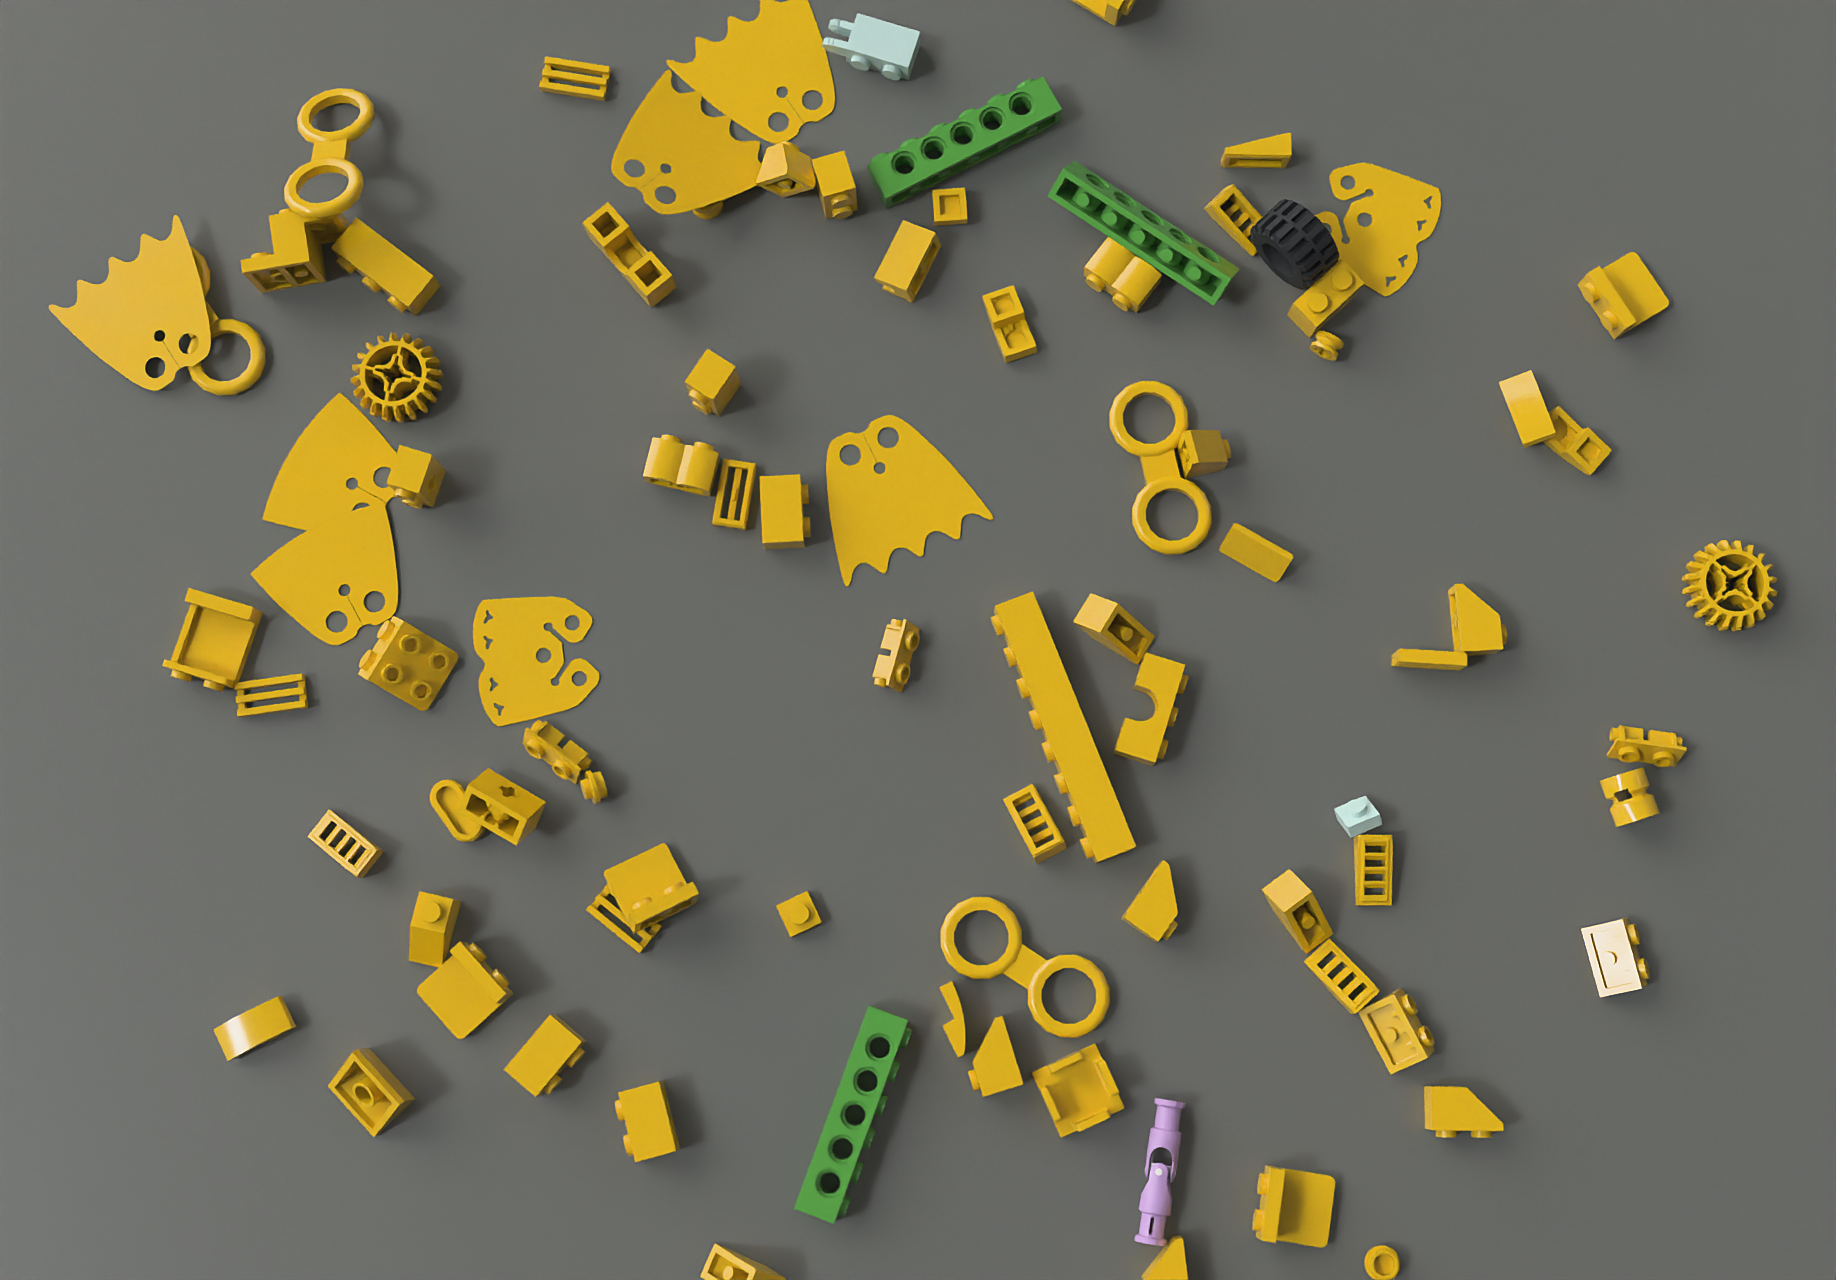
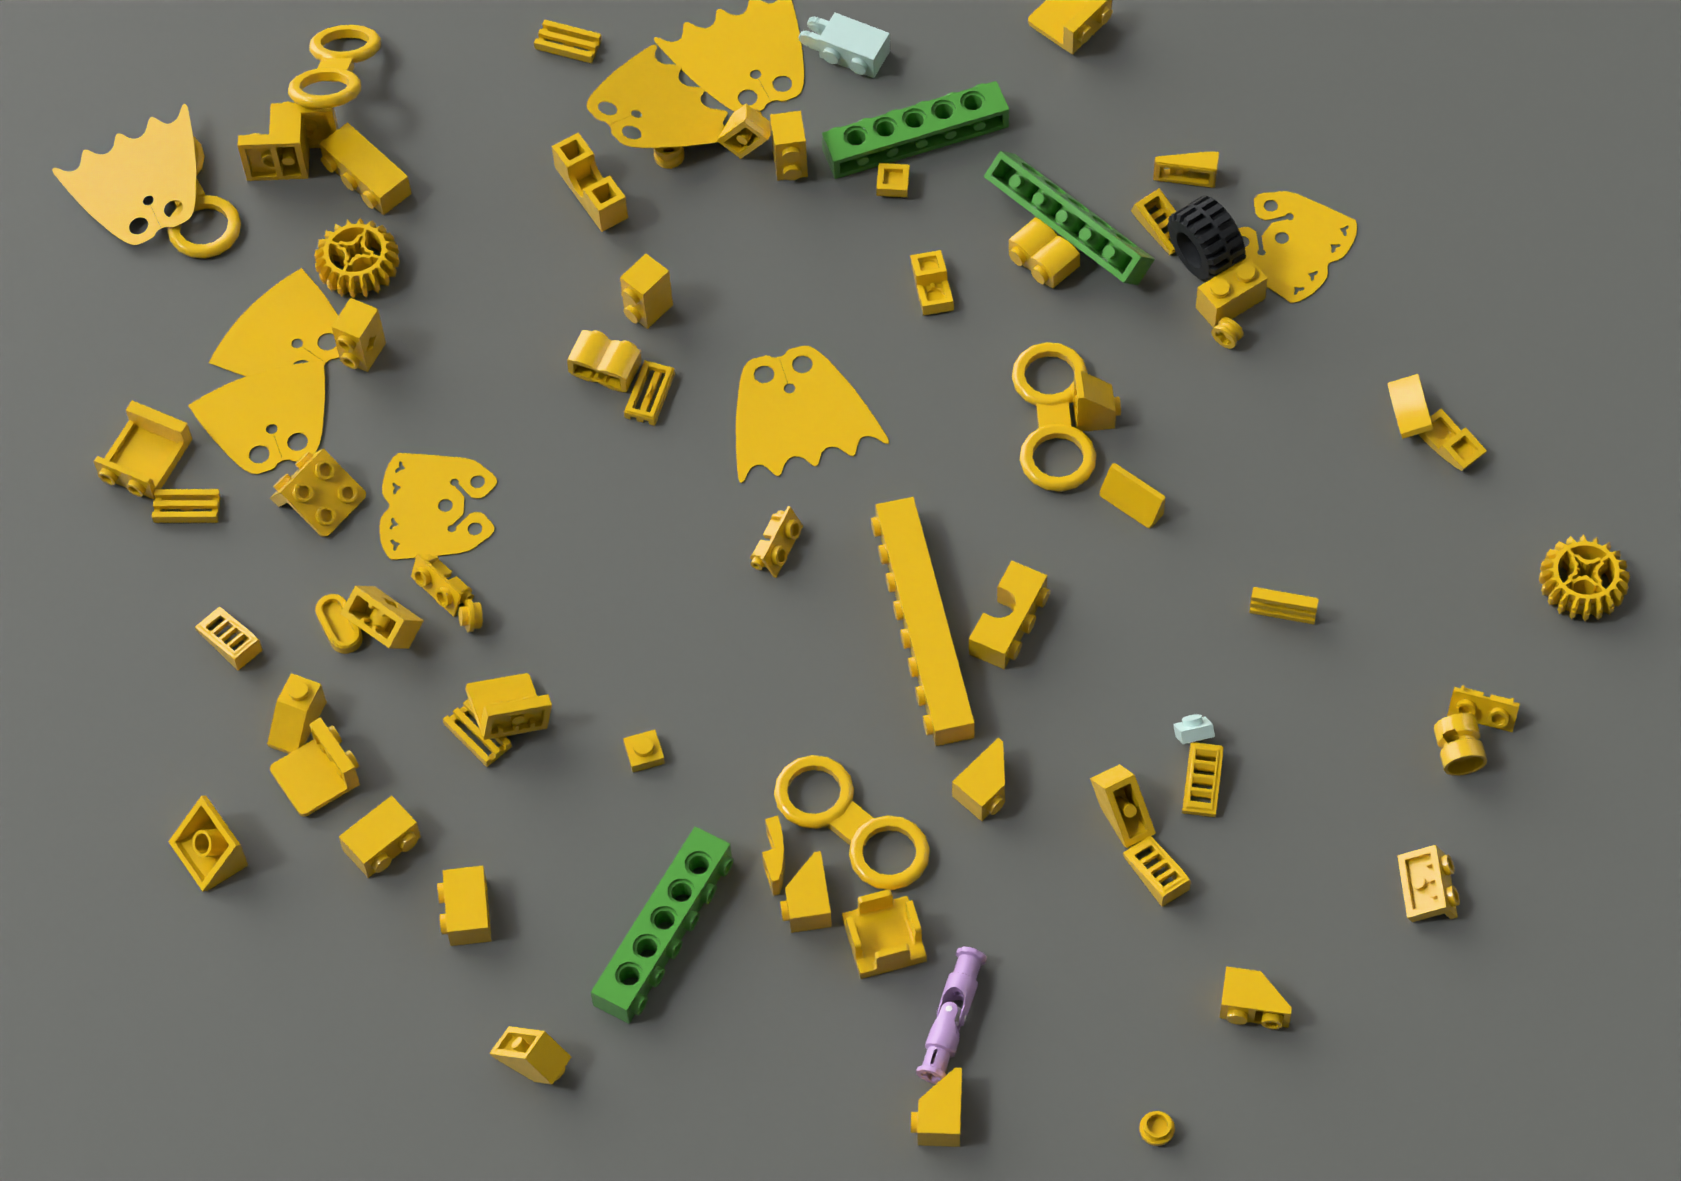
camera: 10 degrees right, 20 degrees down
(254, 1027) = (111, 778): yellow slope -> none
(783, 512) = (691, 409): yellow brick -> none
(908, 260) = (846, 219): yellow hinge -> none
(1048, 849) = (890, 720): yellow slope -> none
(1114, 628) = (985, 541): yellow slope -> none
(1294, 1206) = (1075, 1062): yellow bracket -> none
(1397, 1031) = (1203, 921): yellow bracket -> none
(1474, 623) = (1333, 581): yellow slope -> none
(1623, 294) = (1515, 323): yellow bracket -> none

